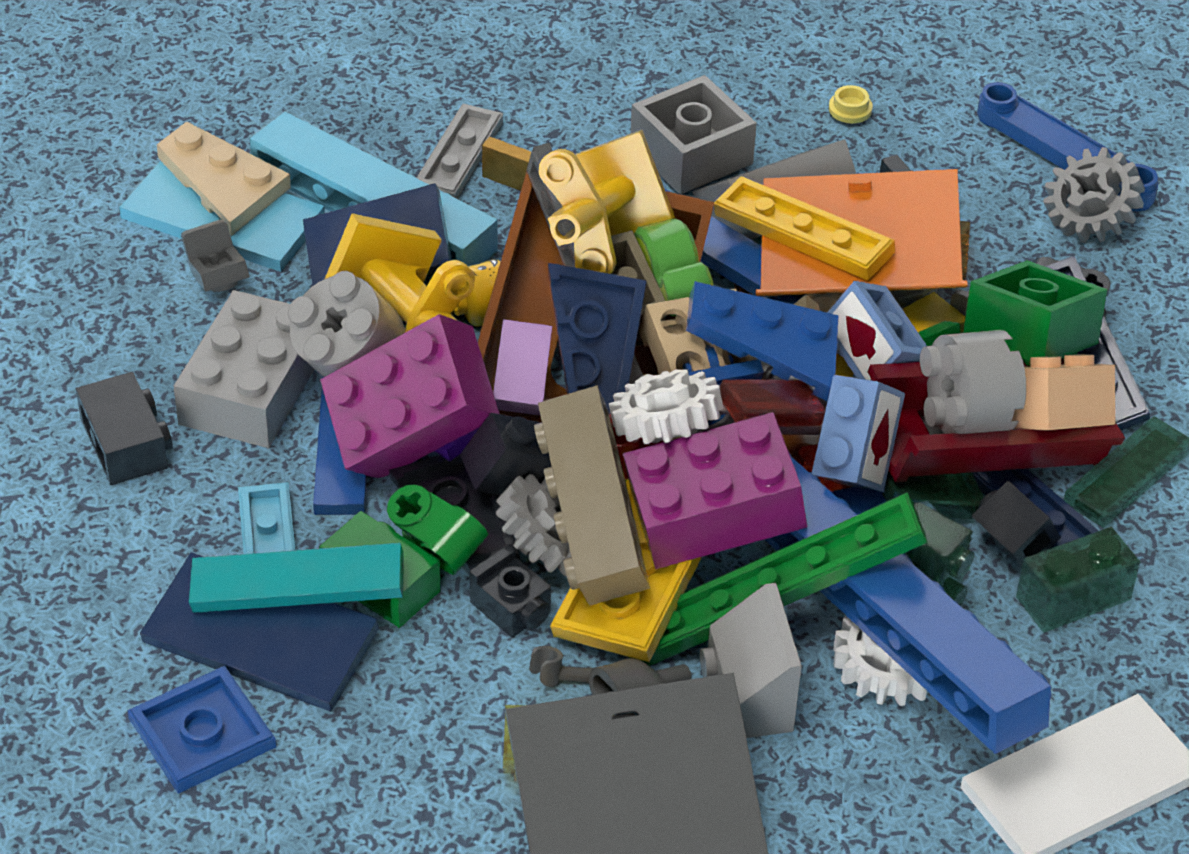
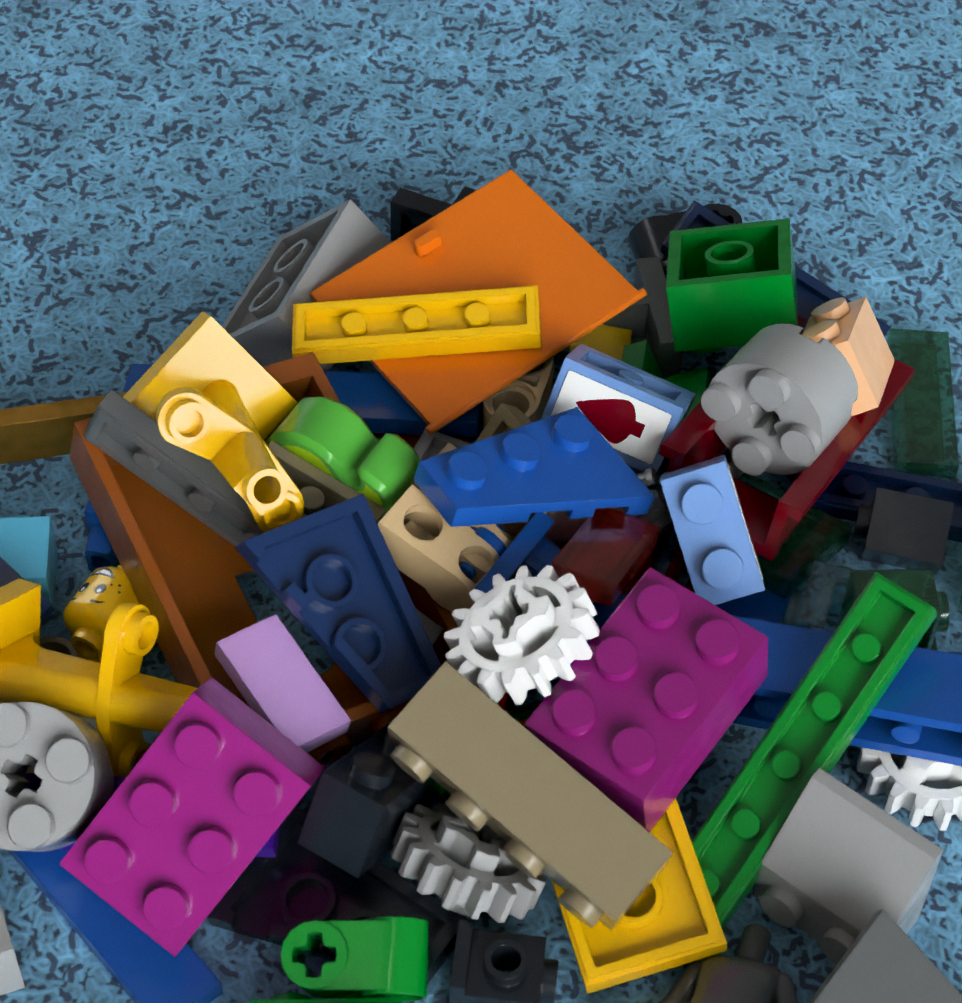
camera: 40 degrees left, 5 degrees up
(695, 133) = (158, 279): light grey brick -> none
(850, 104) = (279, 158): light yellow plate -> none
(1047, 135) = (441, 82): blue piece -> none
(1094, 195) = (614, 105): light grey gear -> none

